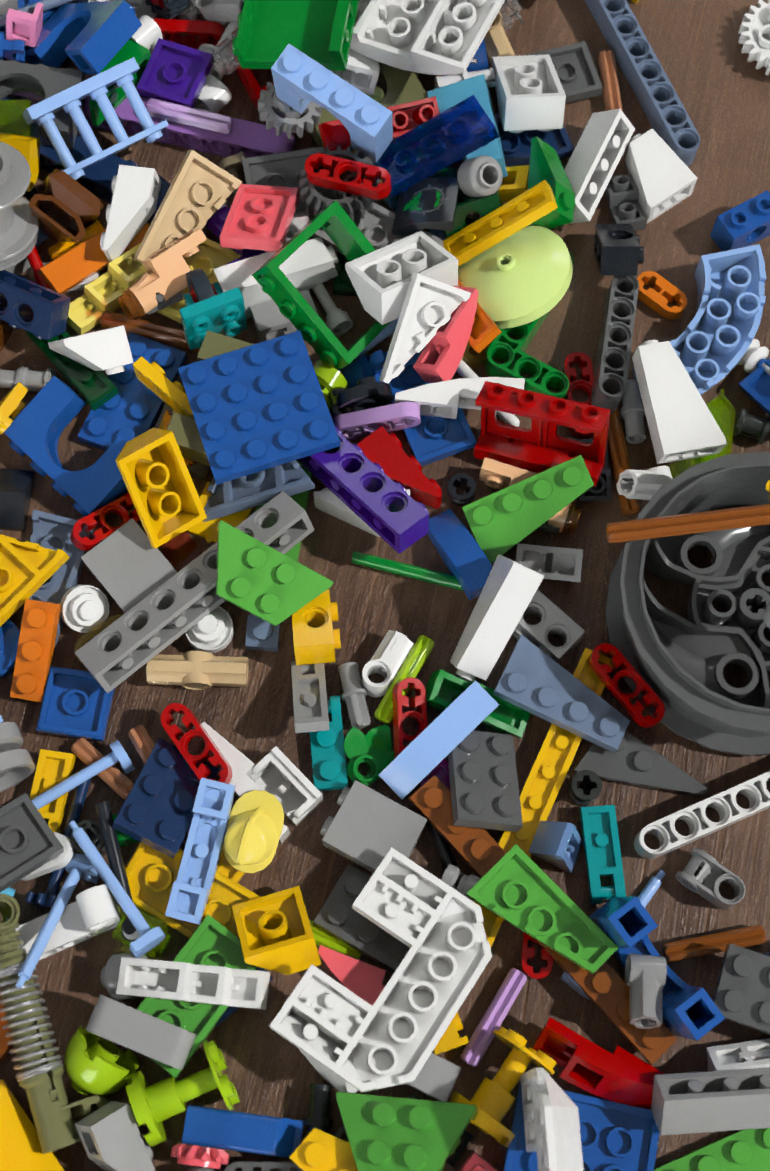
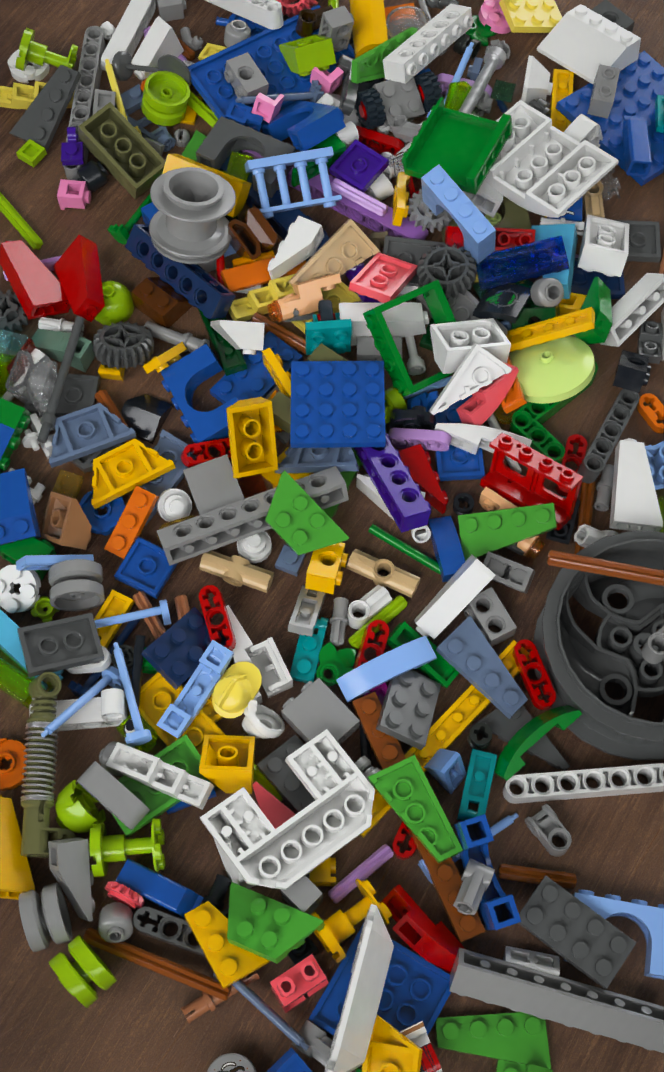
camera: 20 degrees right, 5 degrees down
(245, 104) = (400, 199): none -> yellow plate
(301, 862) = (262, 721): none -> white hat
(355, 186) = (459, 274): red beam -> none
(368, 610) = (370, 566): none -> tan piece
(422, 547) = (421, 536): none -> white hinge
(647, 767) = (510, 760): none -> green slope

